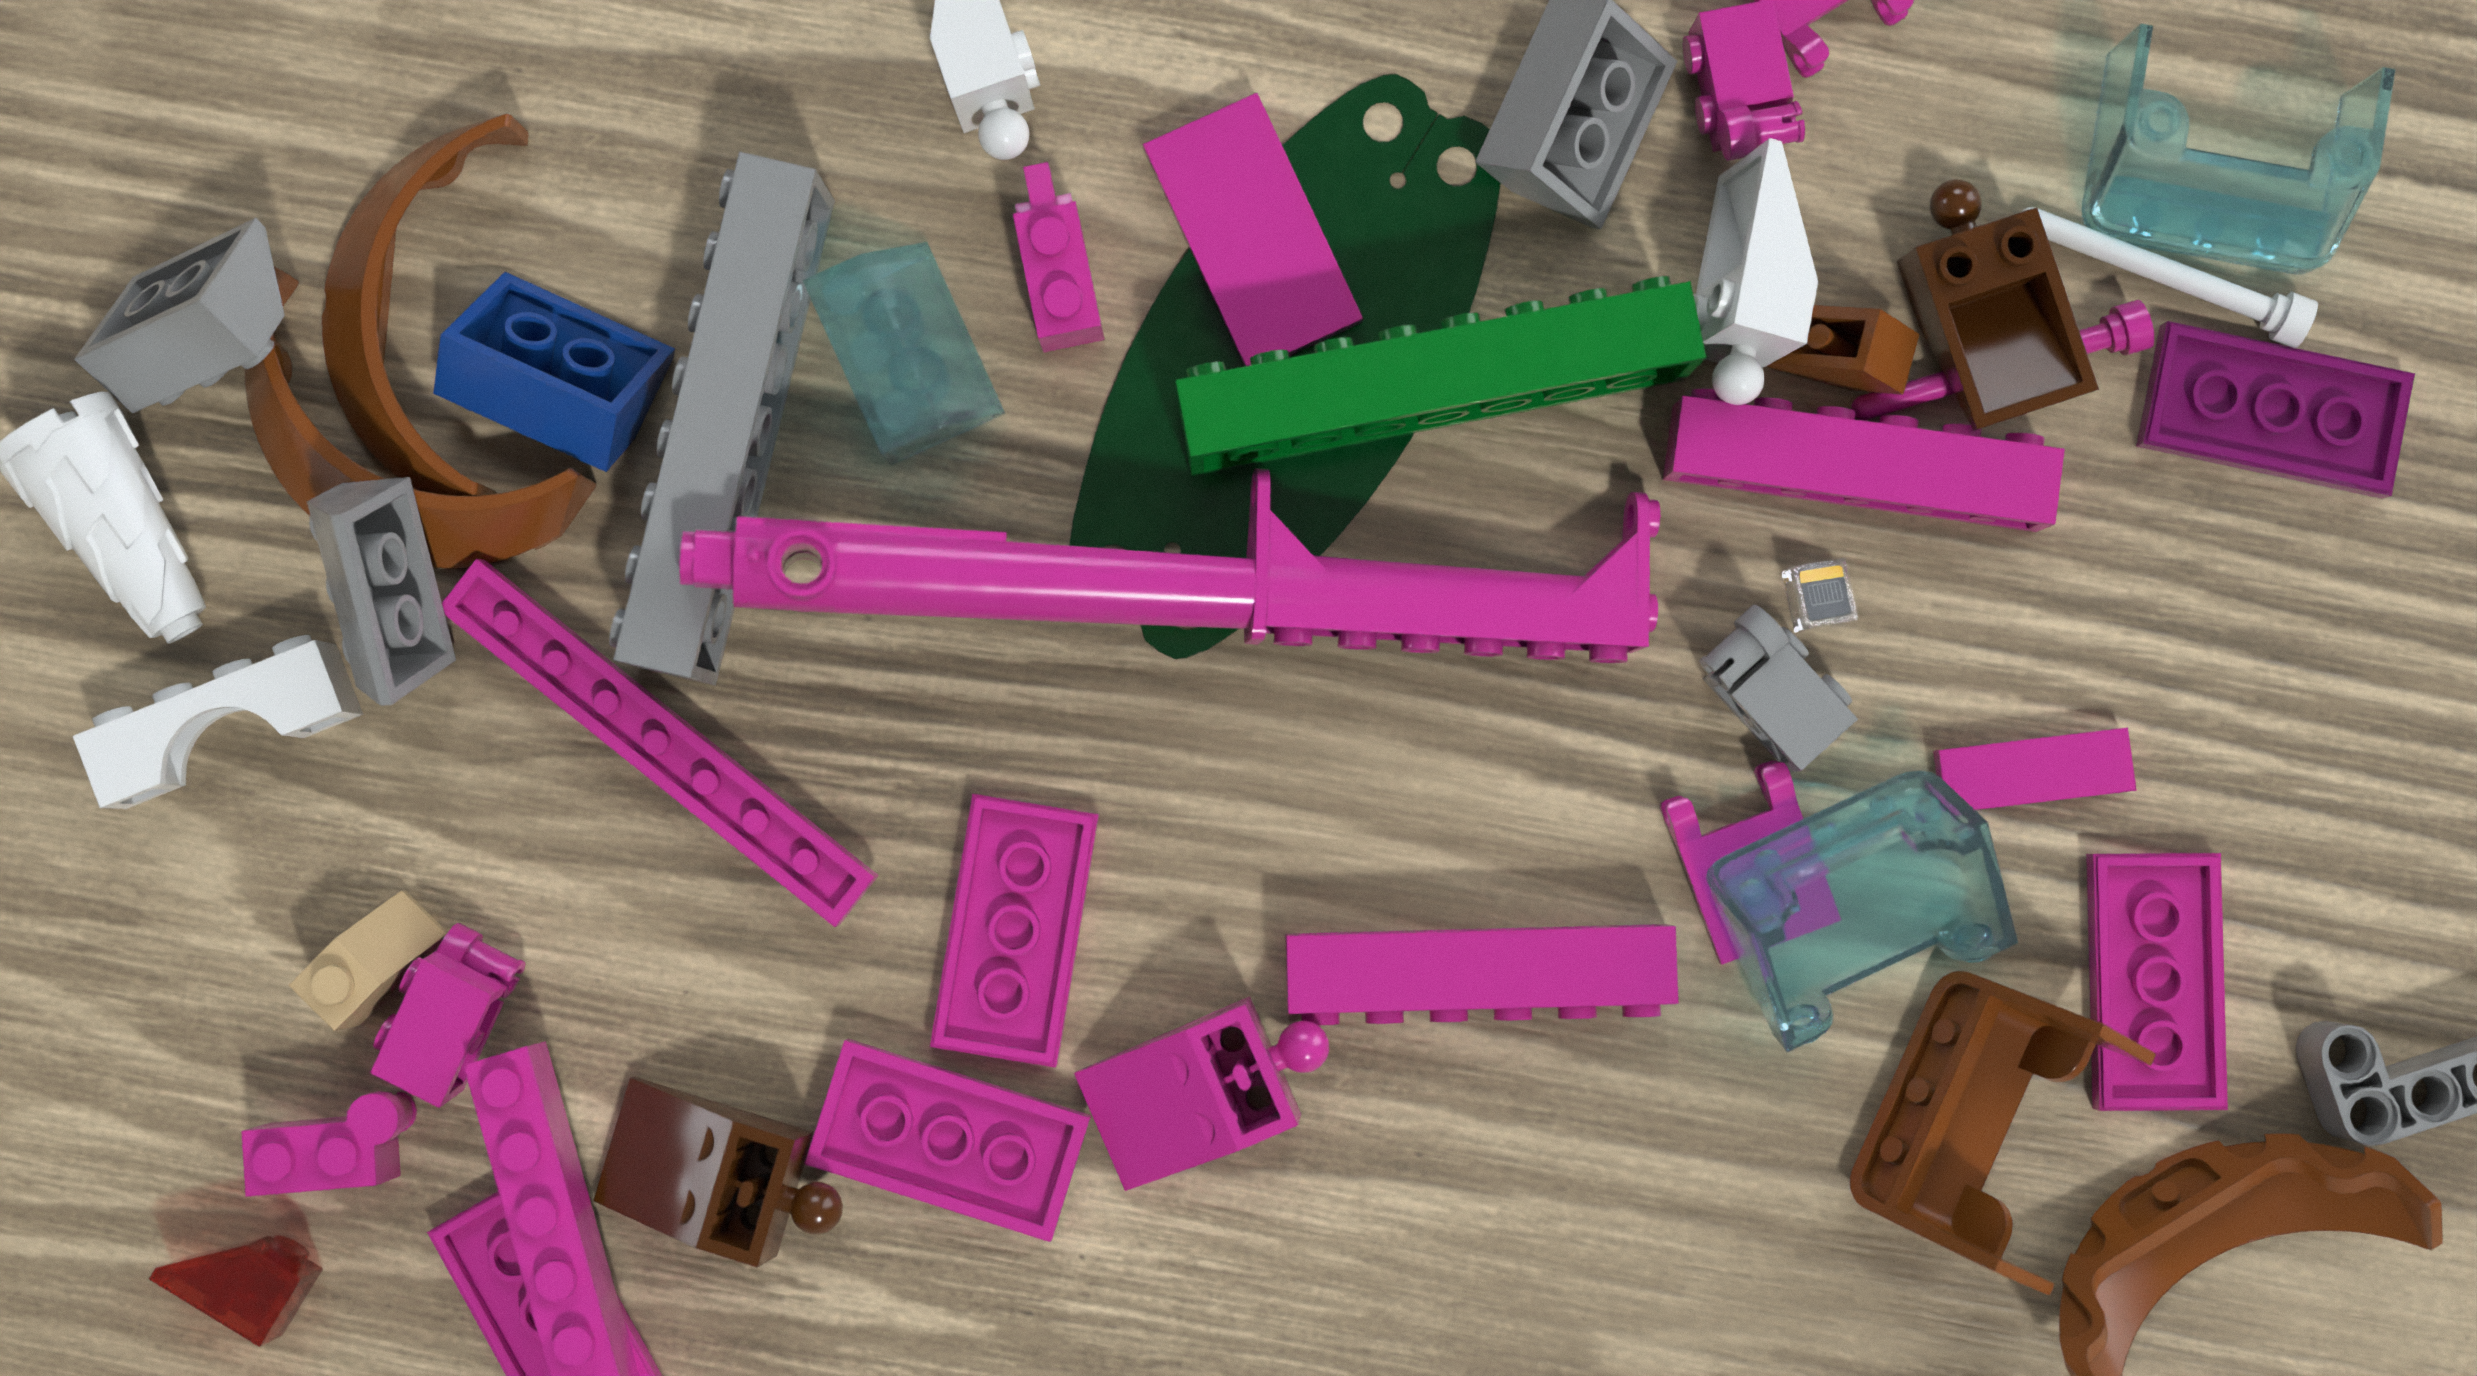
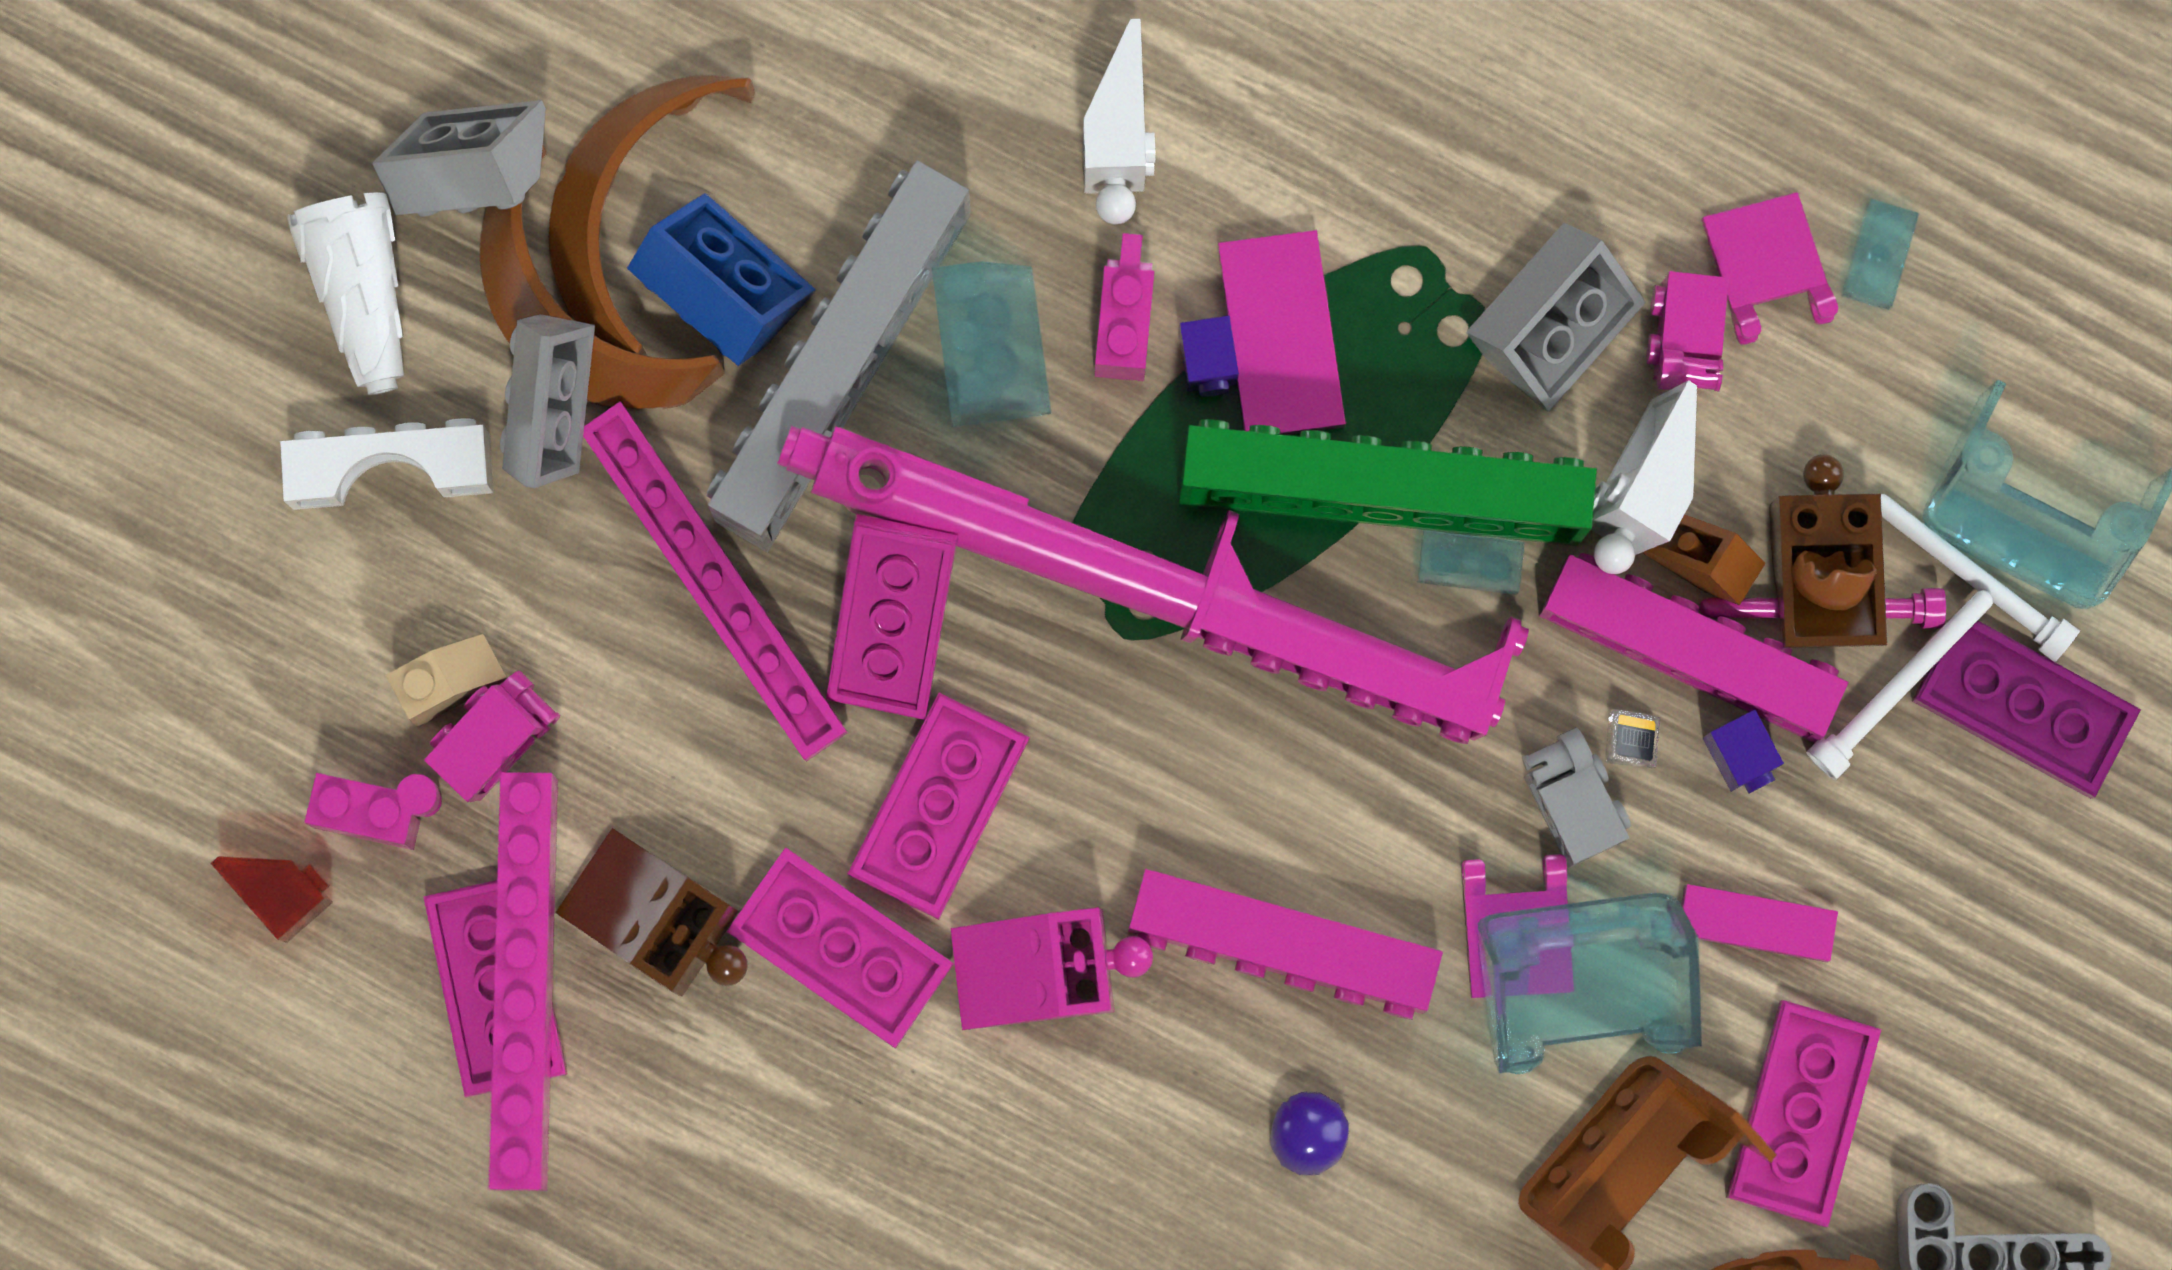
camera: 15 degrees right, 5 degrees down
(883, 722) = (891, 616): none -> dark pink tile
(1173, 285) = (1208, 355): none -> dark purple brick
(1564, 440) = (1470, 562): none -> clear light blue plate
(1577, 1187) = (1309, 1133): none -> dark purple hair
(1960, 571) = (1744, 753): none -> dark purple brick
(2010, 333) = (1831, 581): none -> dark orange hair
(2067, 539) = (1833, 753): none -> white piece

